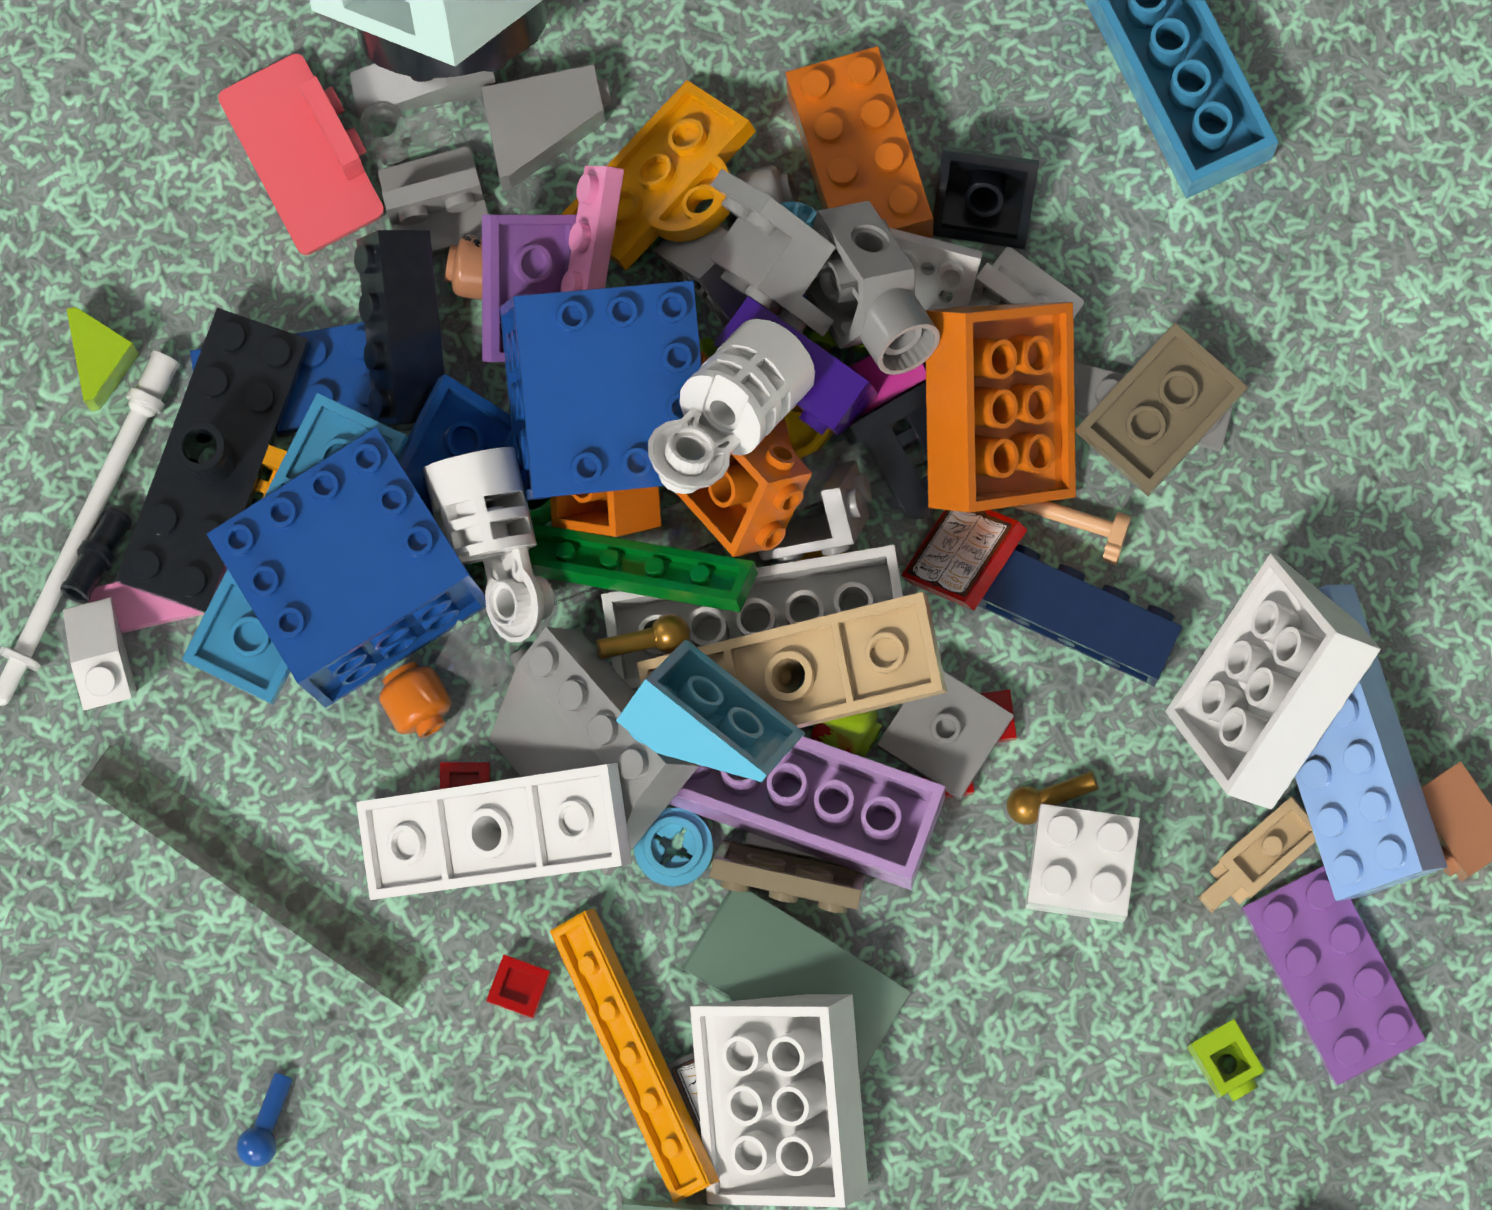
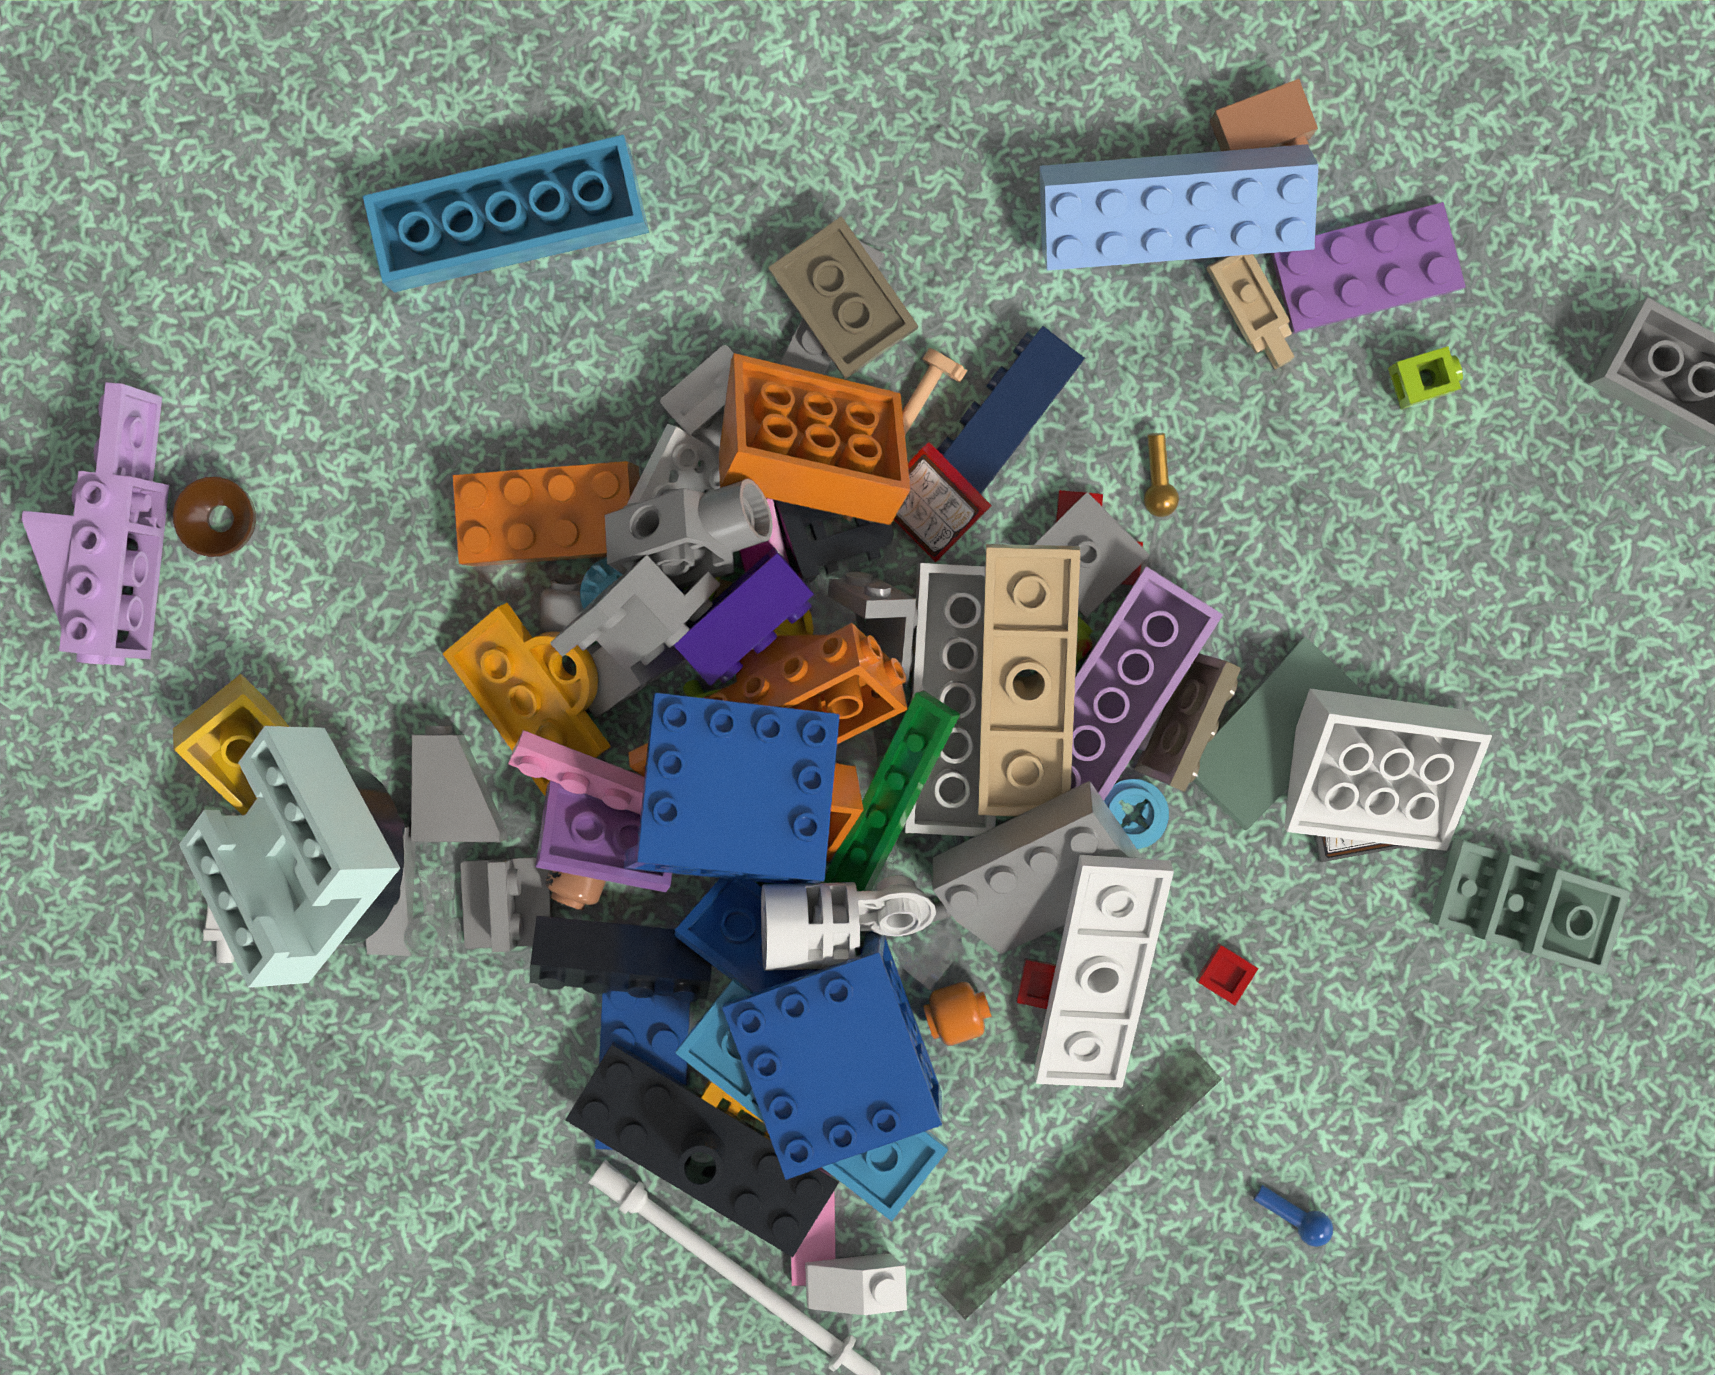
camera: 85 degrees left, 10 degrees up
(96, 555) = (765, 1268): black pin -> none
(100, 357) = (584, 1232): lime slope -> none
(303, 153) = (433, 1012): coral bracket -> none
(634, 1055) = (1308, 886): light orange tile -> none
(665, 635) = (956, 780): pearl gold bar -> none
(707, 717) = (1061, 764): medium azure slope -> none
(731, 405) = (782, 684): white cylinder -> none
(984, 197) = (611, 411): black slope -> none
(1082, 863) = (1229, 462): white piece -> none
(1271, 683) = (1118, 257): white slope -> none

